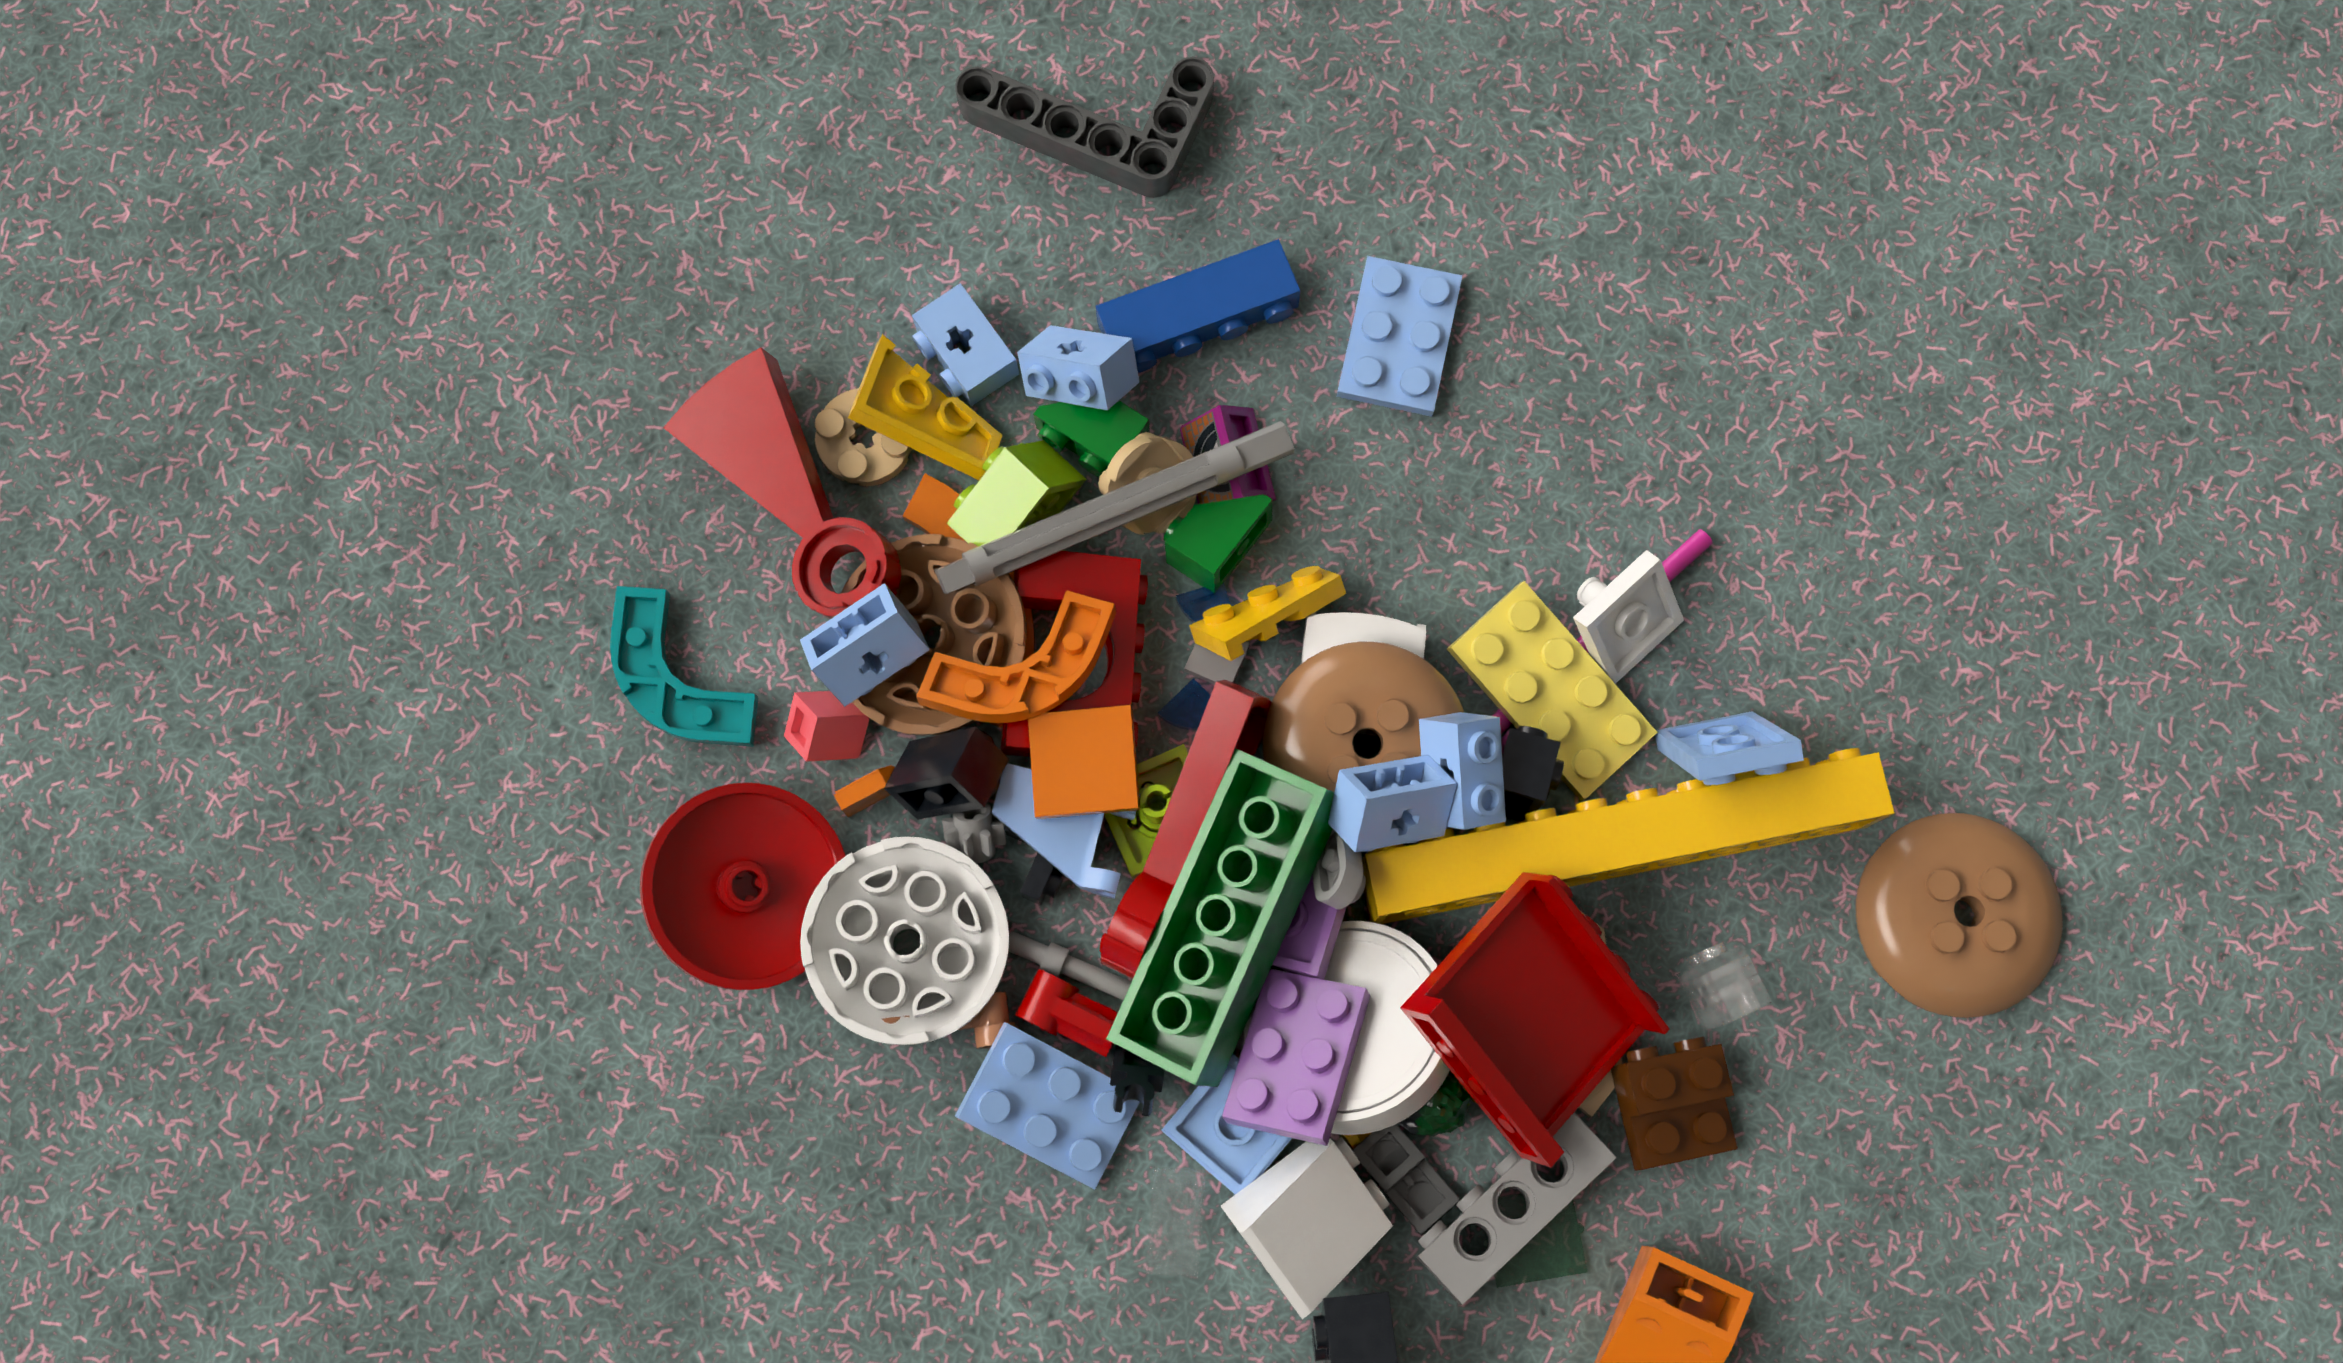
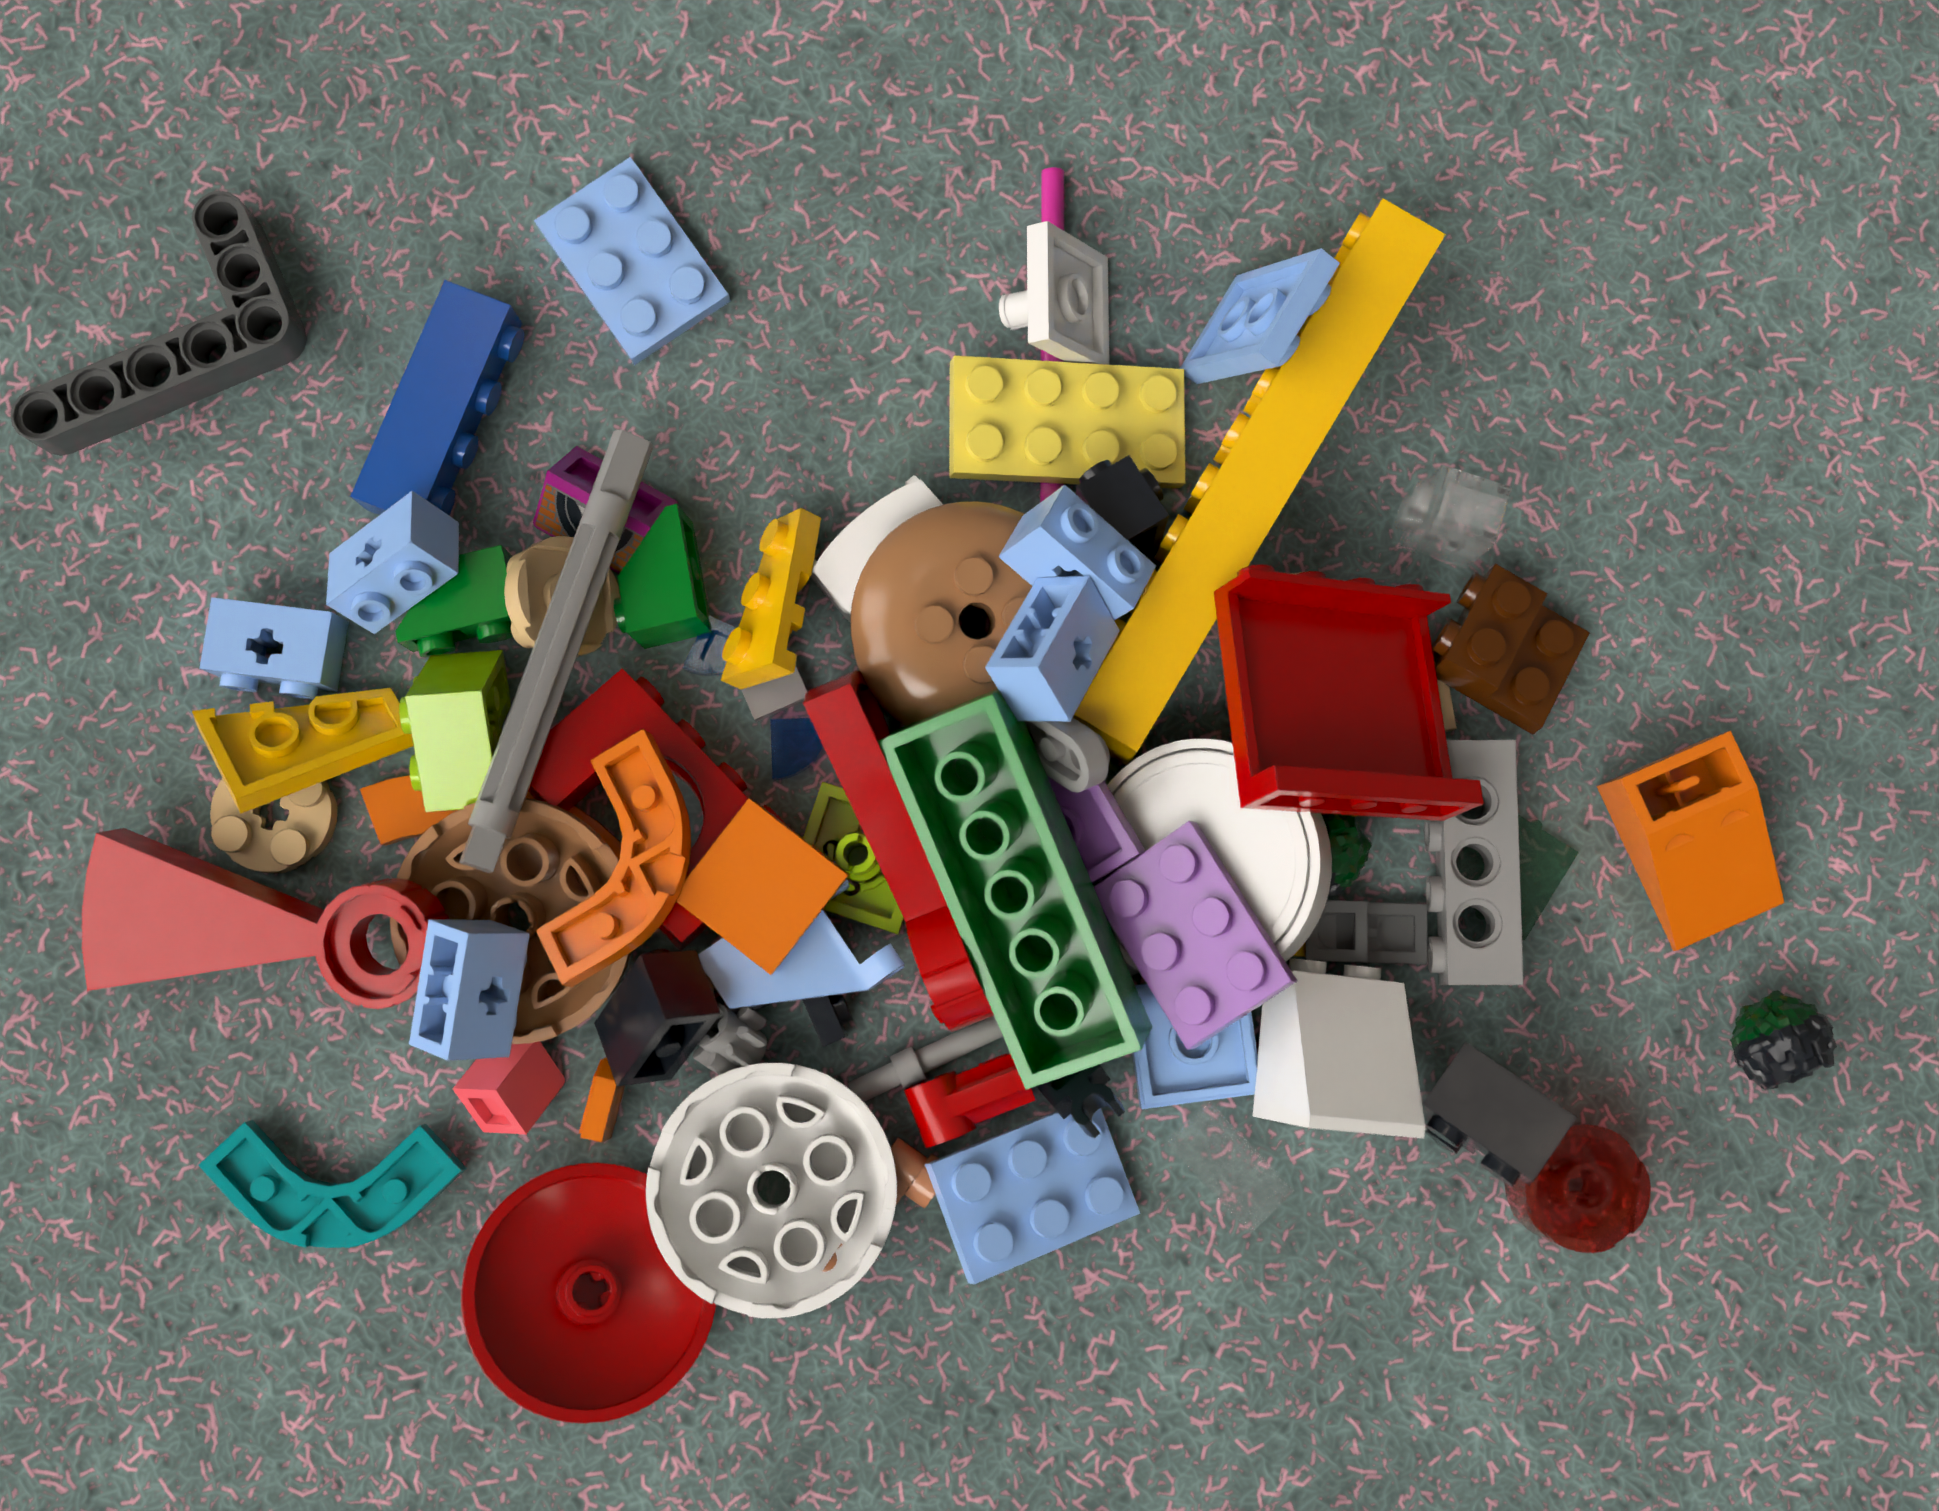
camera: 55 degrees left, 5 degrees up
(1911, 923) = (1526, 309): medium nougat brick -> none

